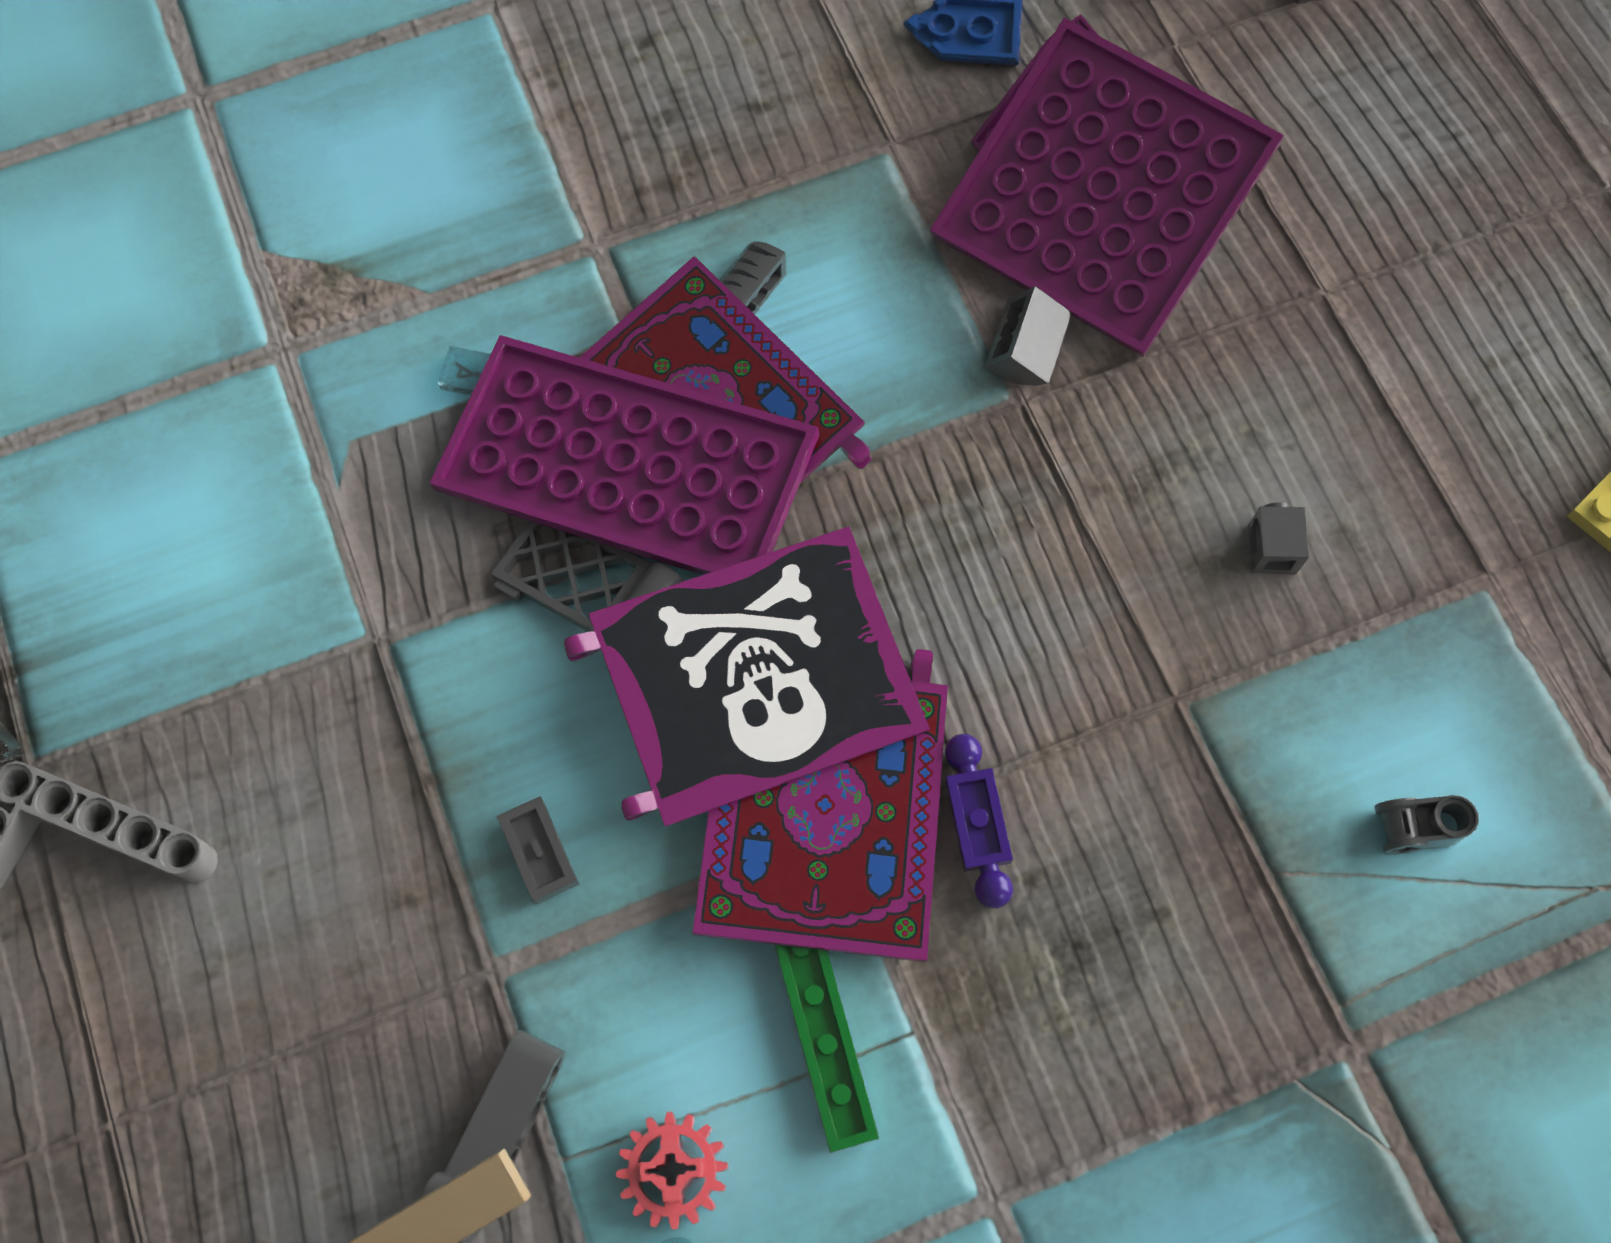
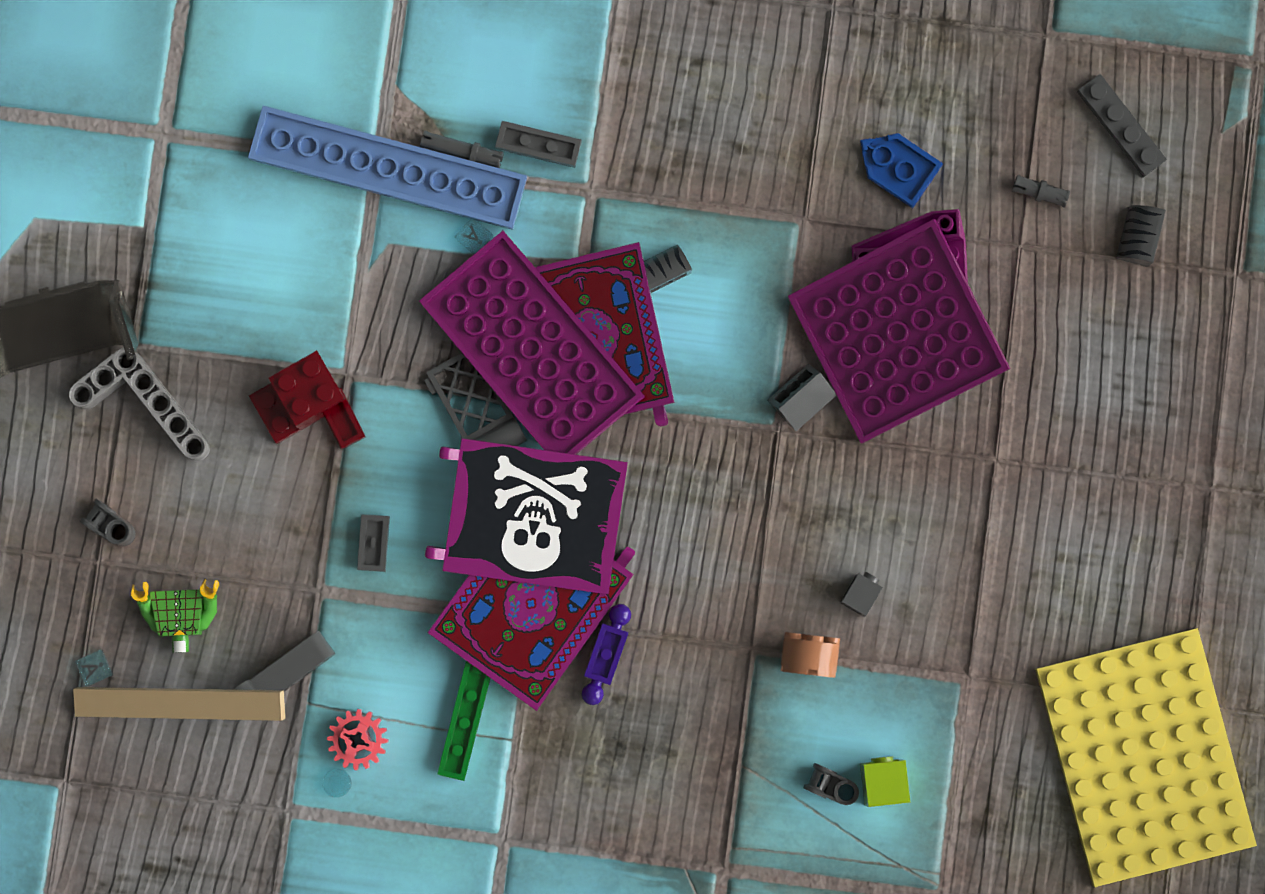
camera: 25 degrees right, 15 degrees up
(92, 1050) = (105, 521): none -> dark grey piece
(274, 1128) = (178, 612): none -> bright green torso
(293, 344) = (387, 167): none -> medium blue plate
(311, 698) = (296, 397): none -> dark red bracket
(390, 274) = (461, 149): none -> dark grey pin
(398, 701) = (344, 423): none -> dark red tile
(491, 219) = (538, 144): none -> dark grey plate
(1271, 652) = (810, 655): none -> nougat brick
(1497, 770) = (884, 782): none -> lime head

